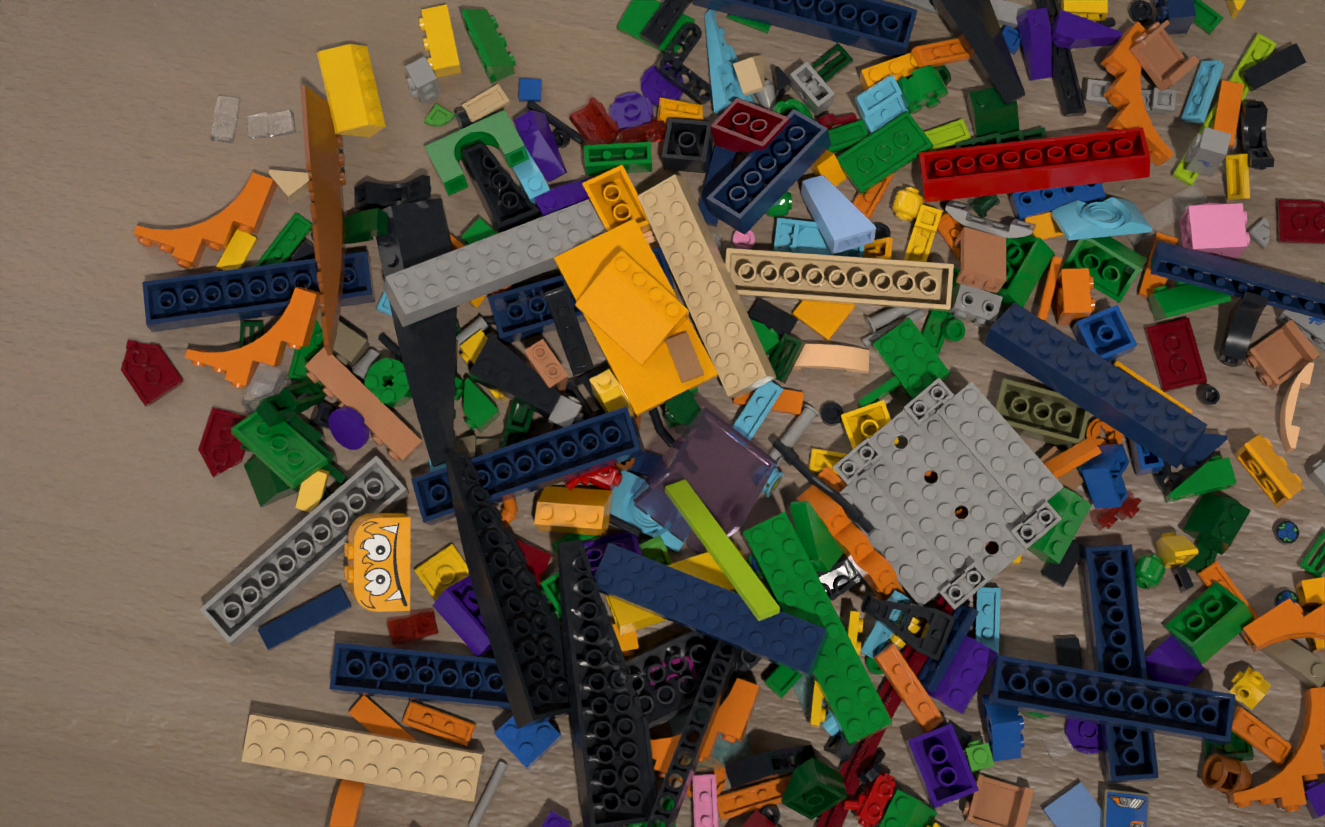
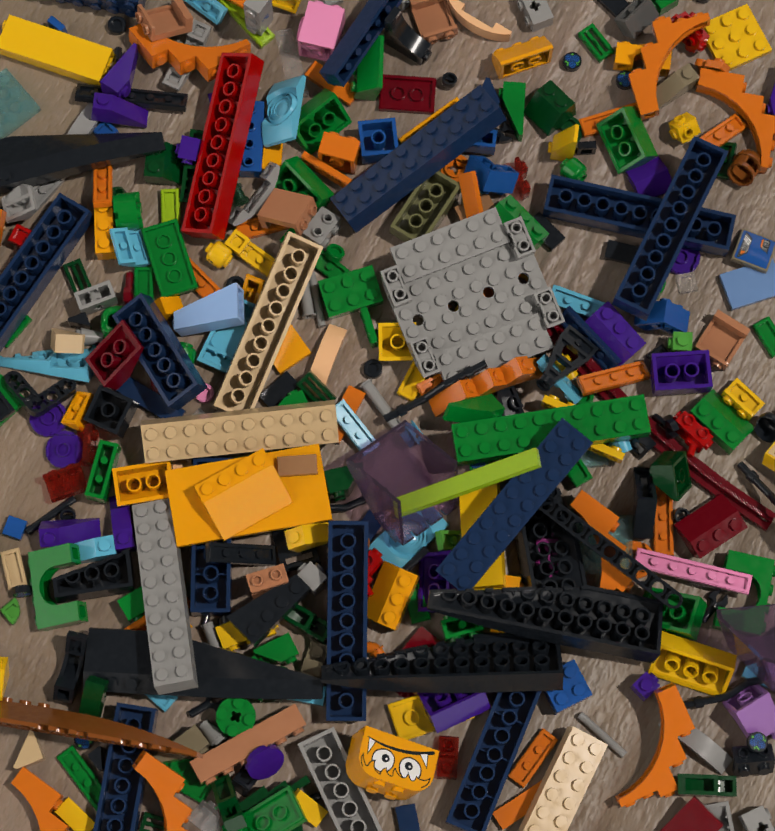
camera: 75 degrees left, 0 degrees up
(1016, 129) = (188, 149): none -> dark purple brick

